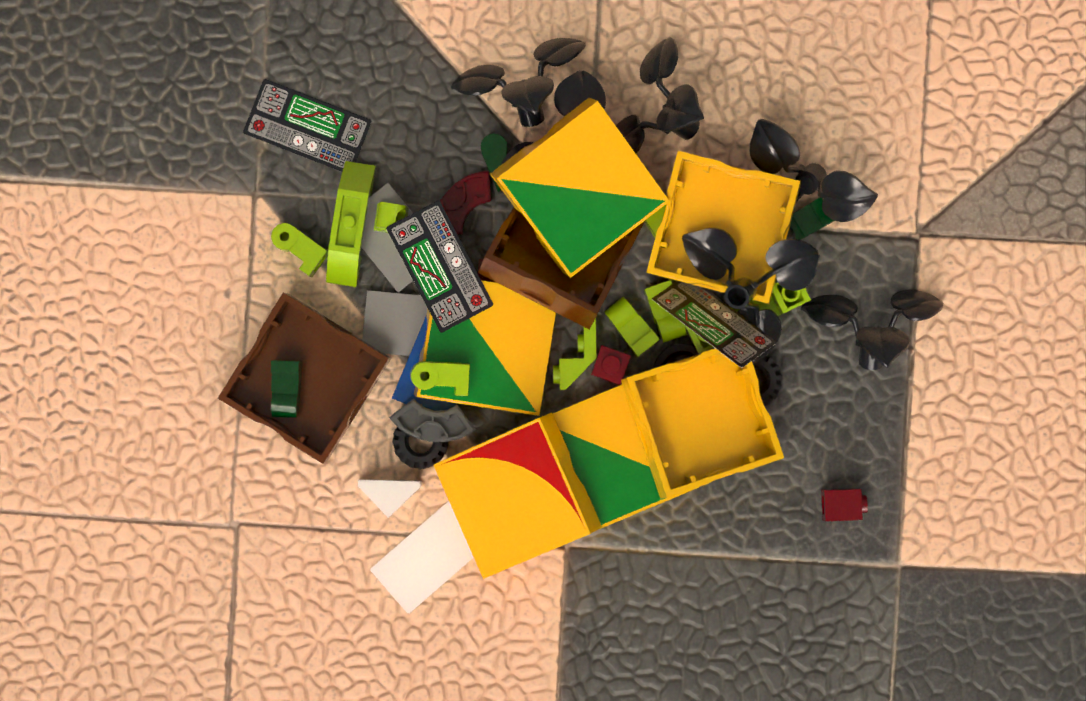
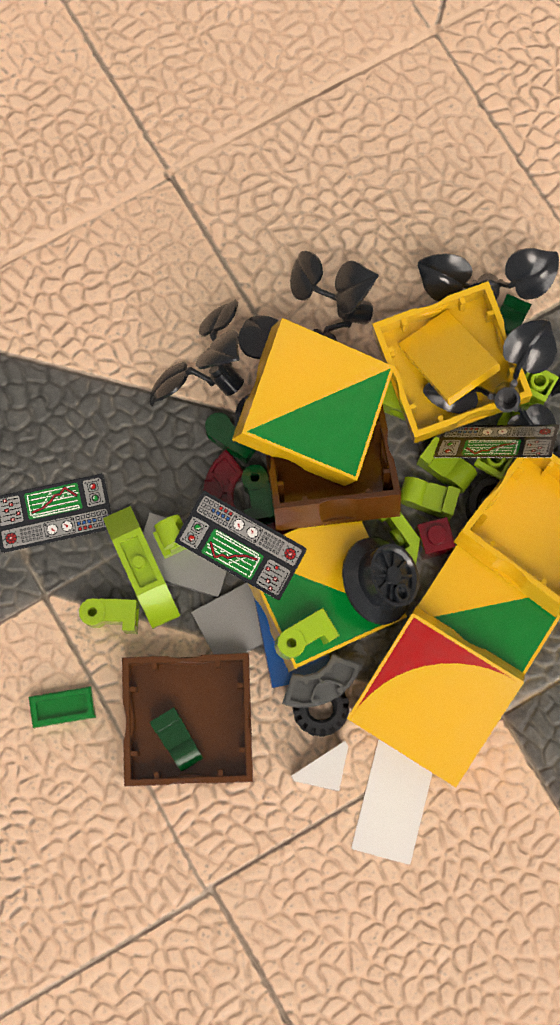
camera: 35 degrees left, 10 degrees down
(210, 298) = (62, 707): none -> green tile
(493, 215) = (257, 486): none -> dark green leg
(533, 371) = (379, 580): none -> black wheel
(722, 222) = (449, 357): none -> yellow tile

